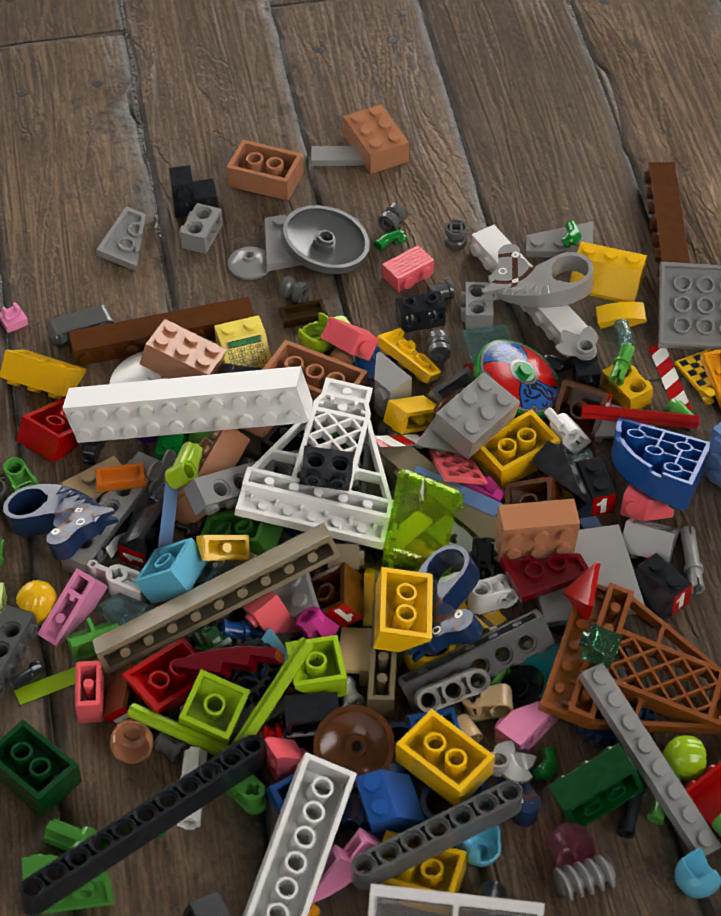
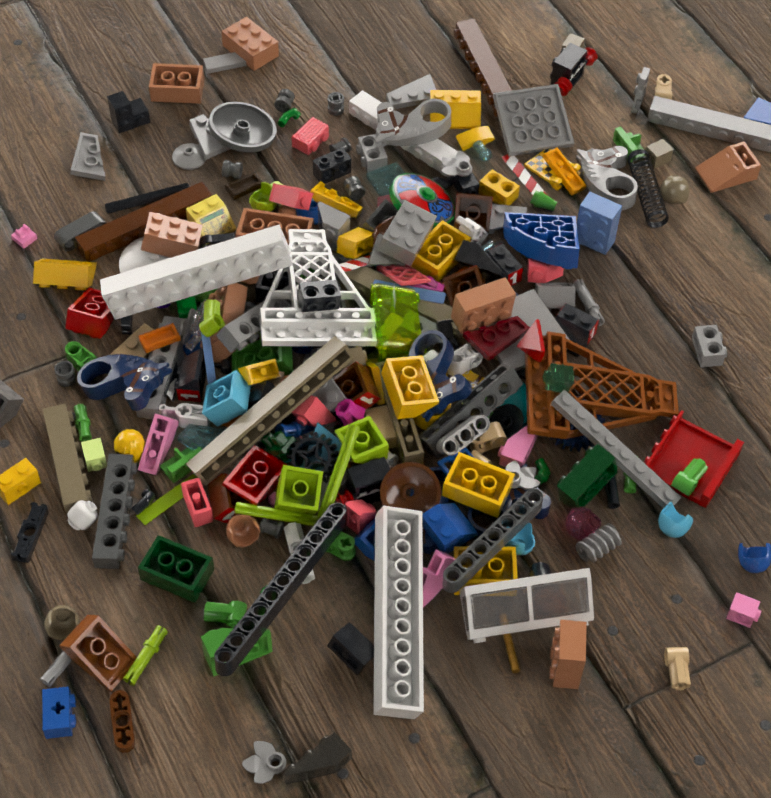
camera: 20 degrees left, 5 degrees up
(171, 303) = (143, 198): none -> black axle
(201, 228) = (143, 137): light grey brick -> none
(223, 660) = (294, 455): dark red slope -> none
(572, 236) = (422, 86): green arm -> none
(622, 363) = (493, 173): bright green axle -> none
(642, 416) = (528, 207): red axle -> none
(686, 757) = (637, 440): lime hair -> none

